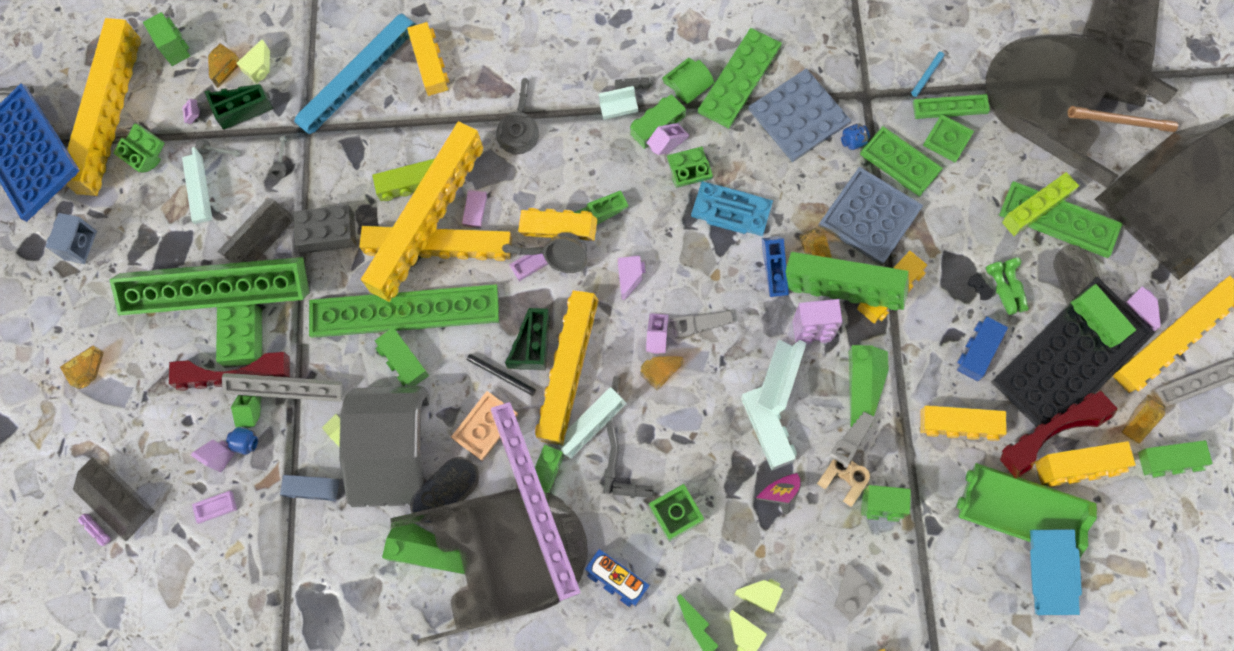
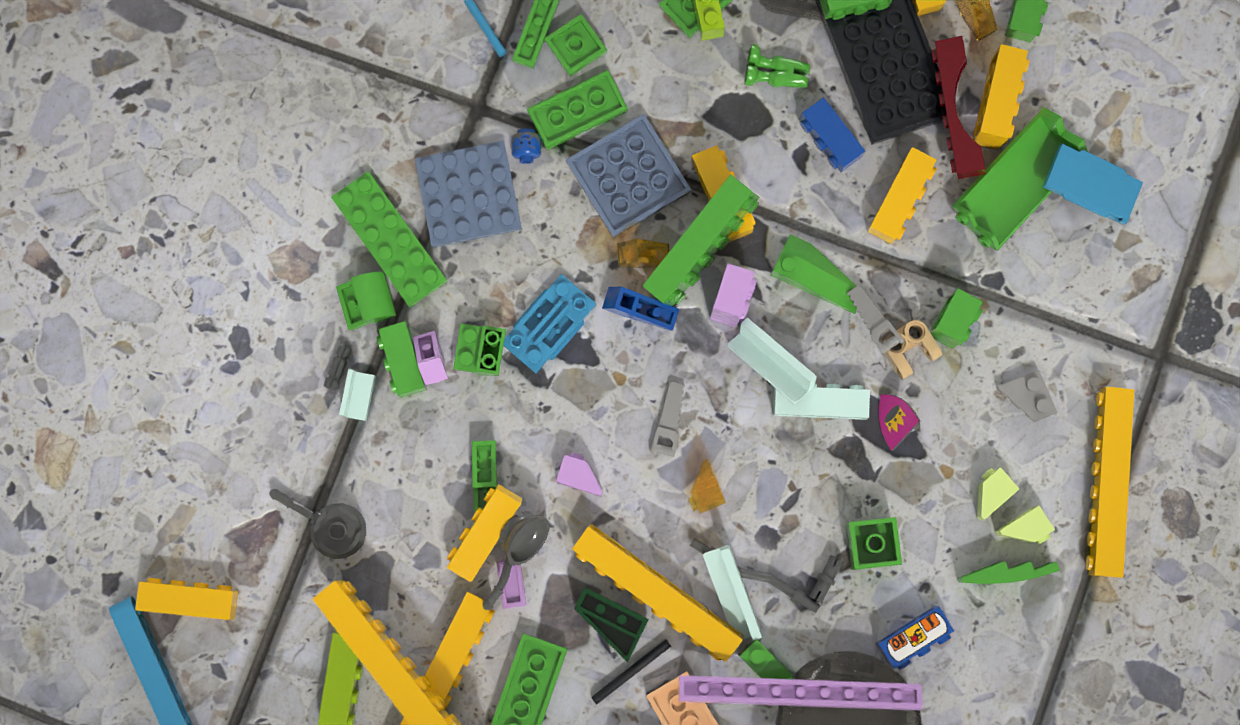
camera: 70 degrees left, 10 degrees up
(474, 209) = (413, 621): lavender tile -> none
(657, 333) = (661, 474): lavender slope -> none
(981, 287) = (762, 99): black piece -> none

